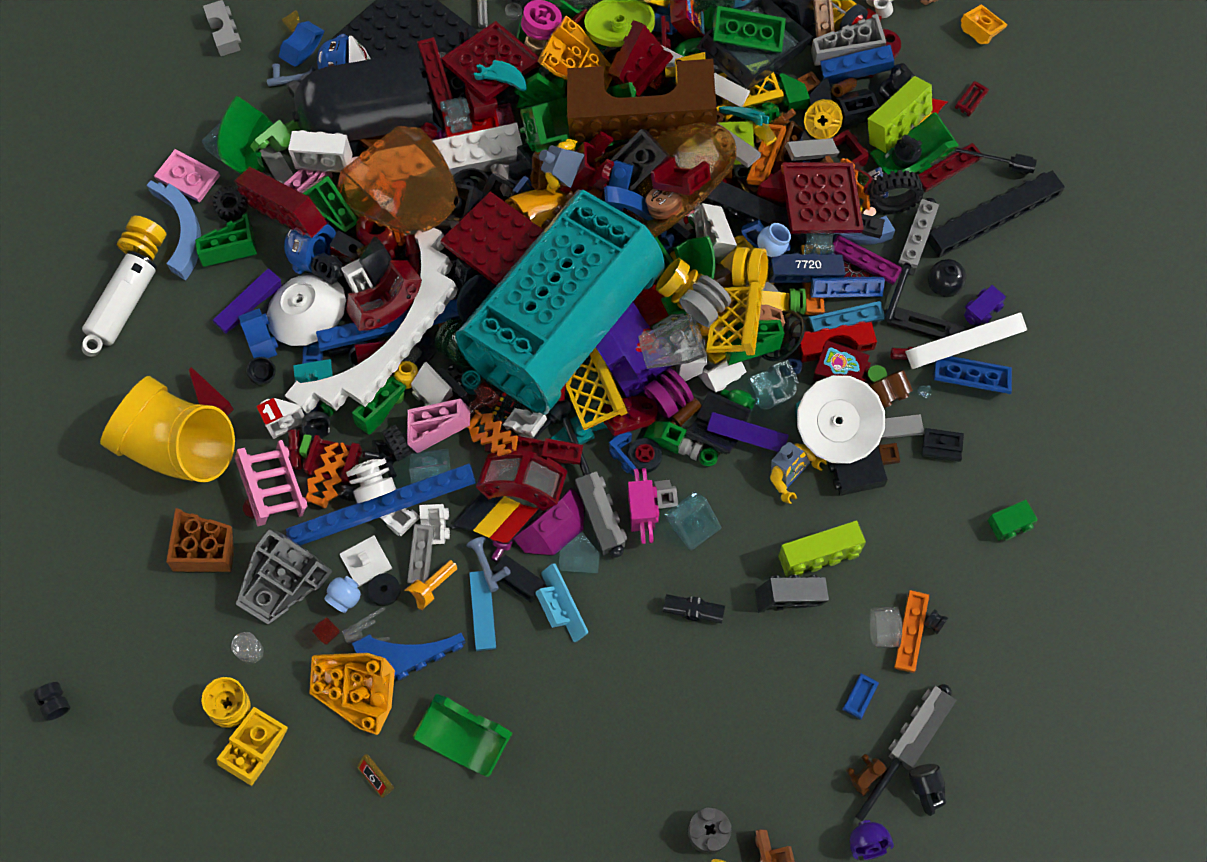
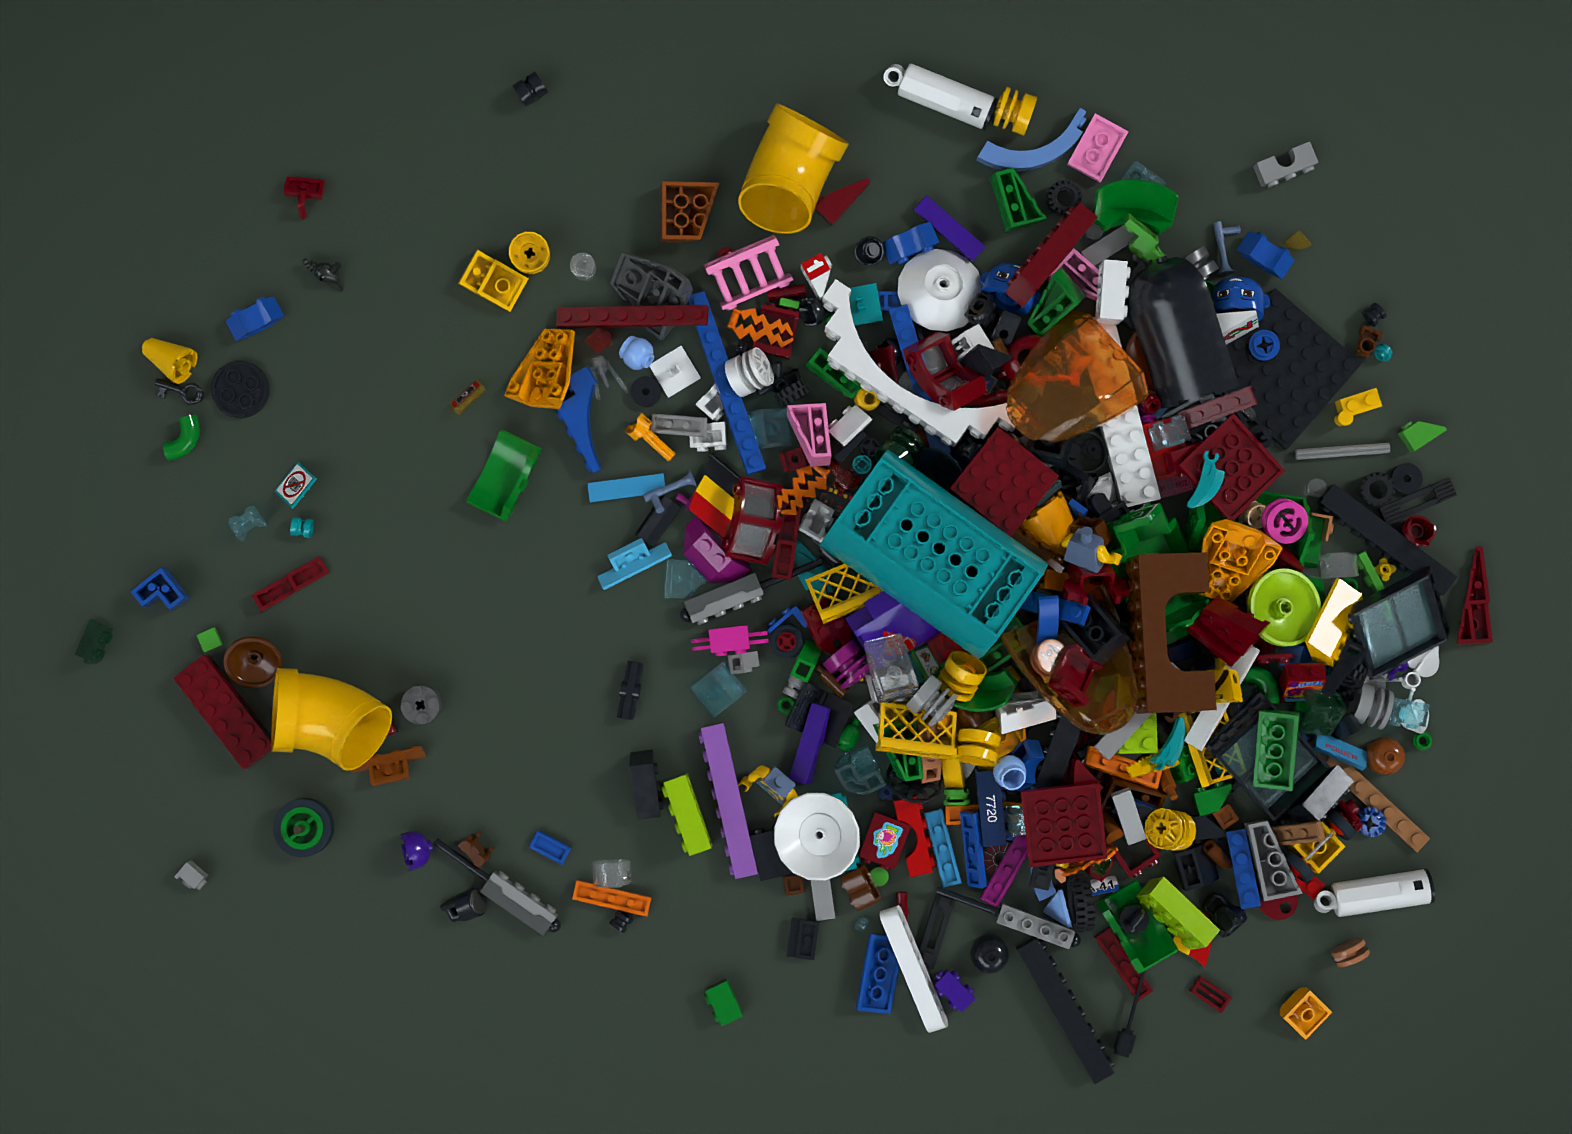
camera: 85 degrees right, 20 degrees up
(304, 598) = (632, 316): none -> dark red plate
(375, 43) = (1268, 337): none -> blue gear
(463, 451) = (788, 465): none -> dark red brick
(805, 512) = (729, 801): none -> medium lavender brick
(901, 216) = (1057, 908): none -> light blue slope

